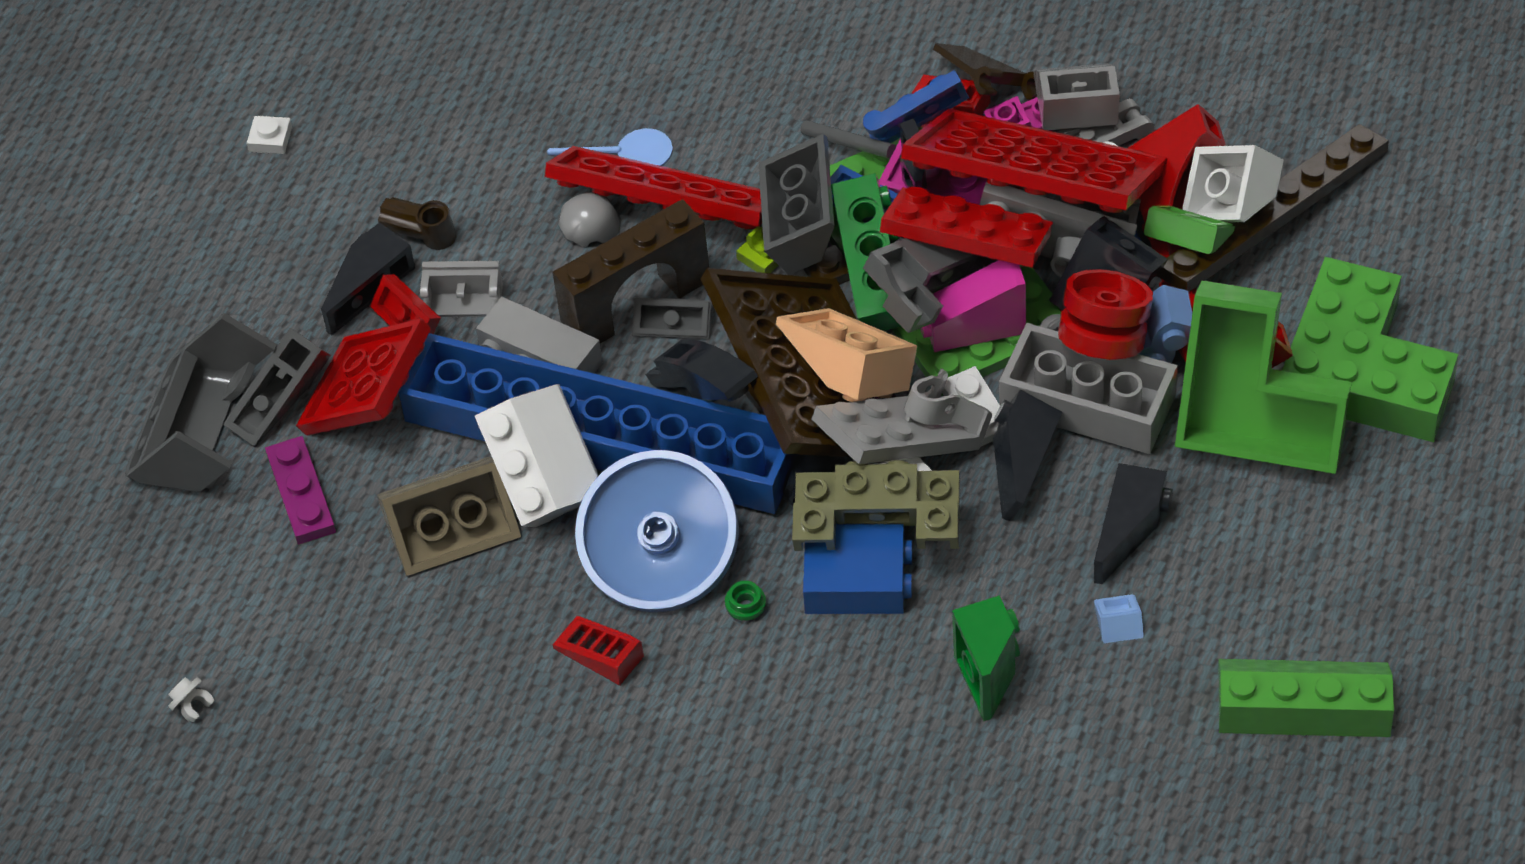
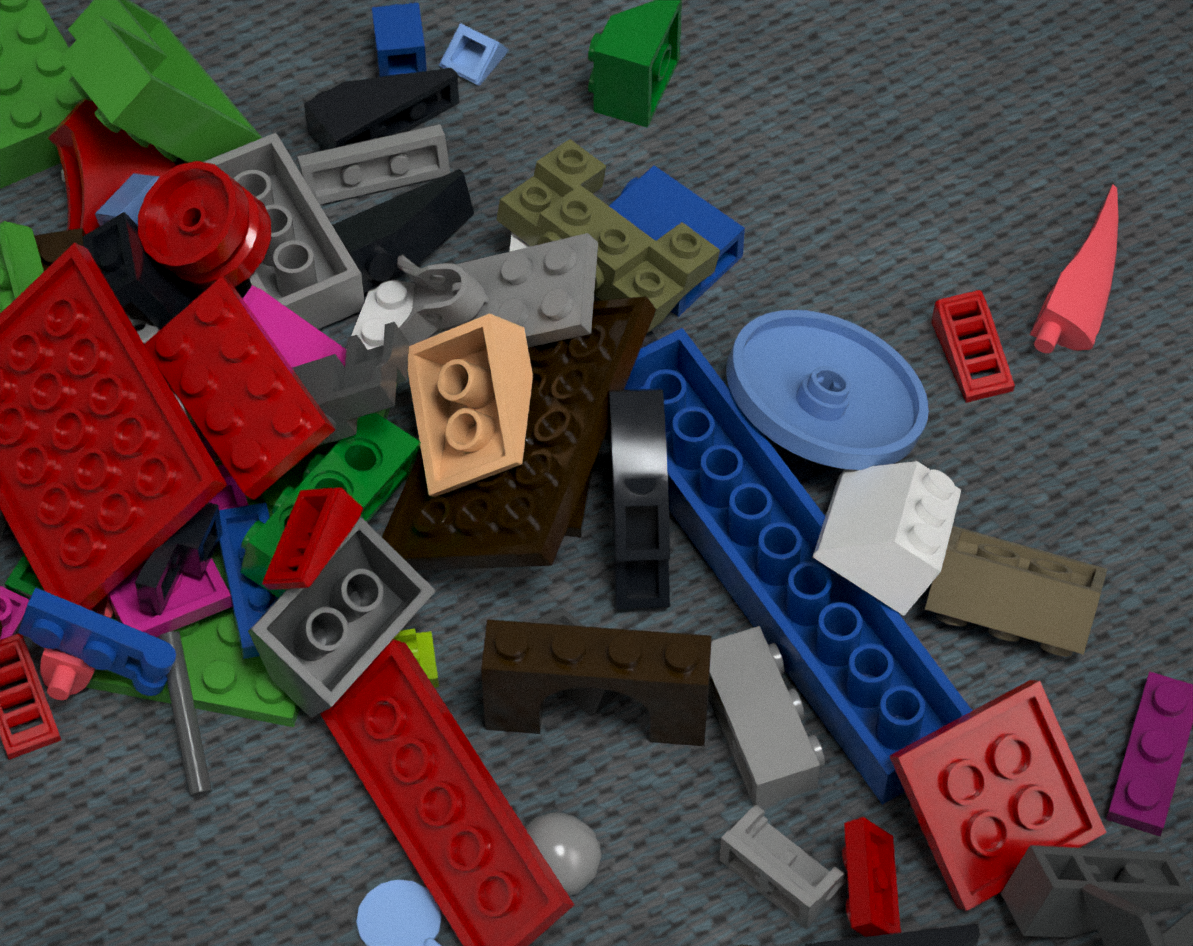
camera: 145 degrees left, 5 degrees up
(559, 735) = (1081, 294): none -> coral piece
(745, 591) = (793, 282): green plate -> none
(838, 191) = (311, 537): none -> red slope
(1089, 486) = (376, 164): none -> light grey plate
(1169, 576) = (399, 39): none -> blue brick

